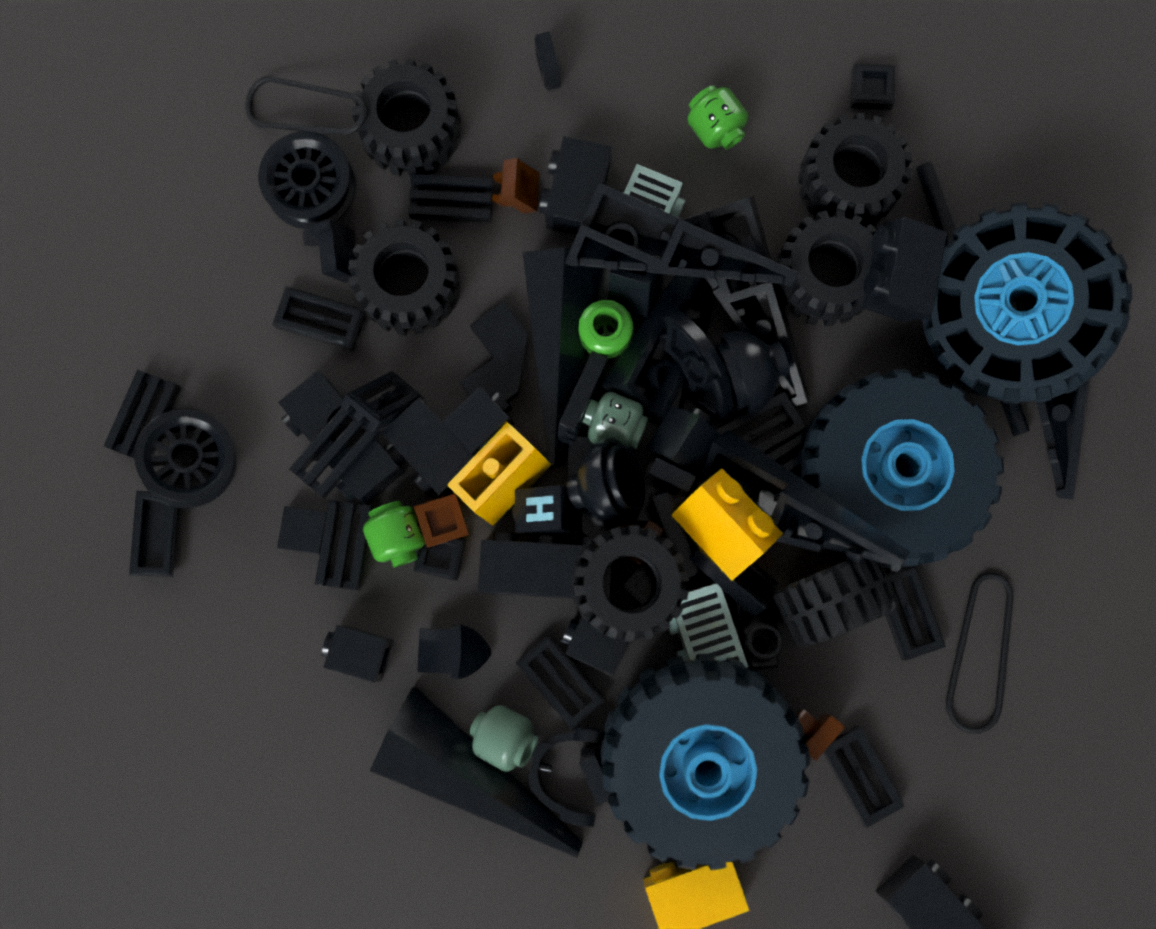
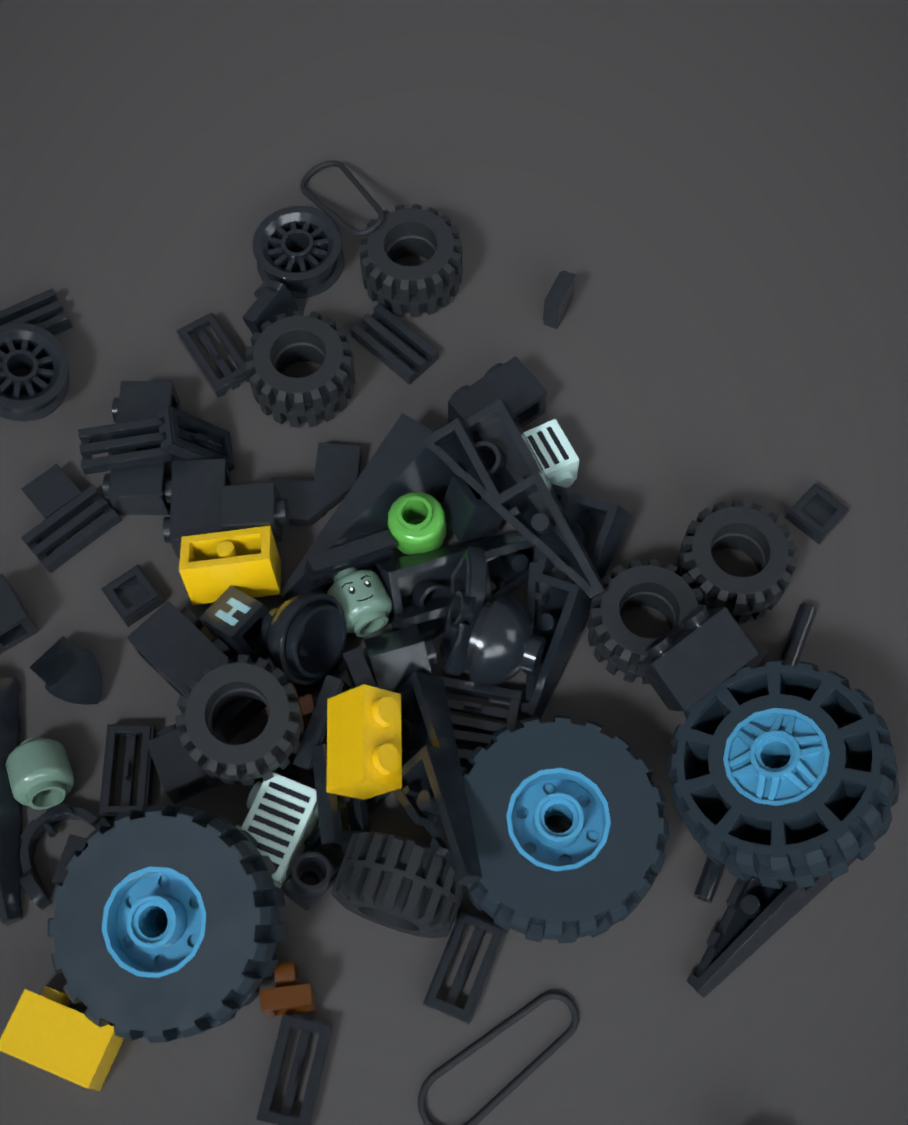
camera: 40 degrees right, 15 degrees down
(394, 534) = (112, 546): bright green head -> none
(441, 519) = (154, 564): reddish brown tile -> none
(519, 186) = (451, 370): reddish brown tile -> none
(717, 117) = (657, 436): bright green head -> none

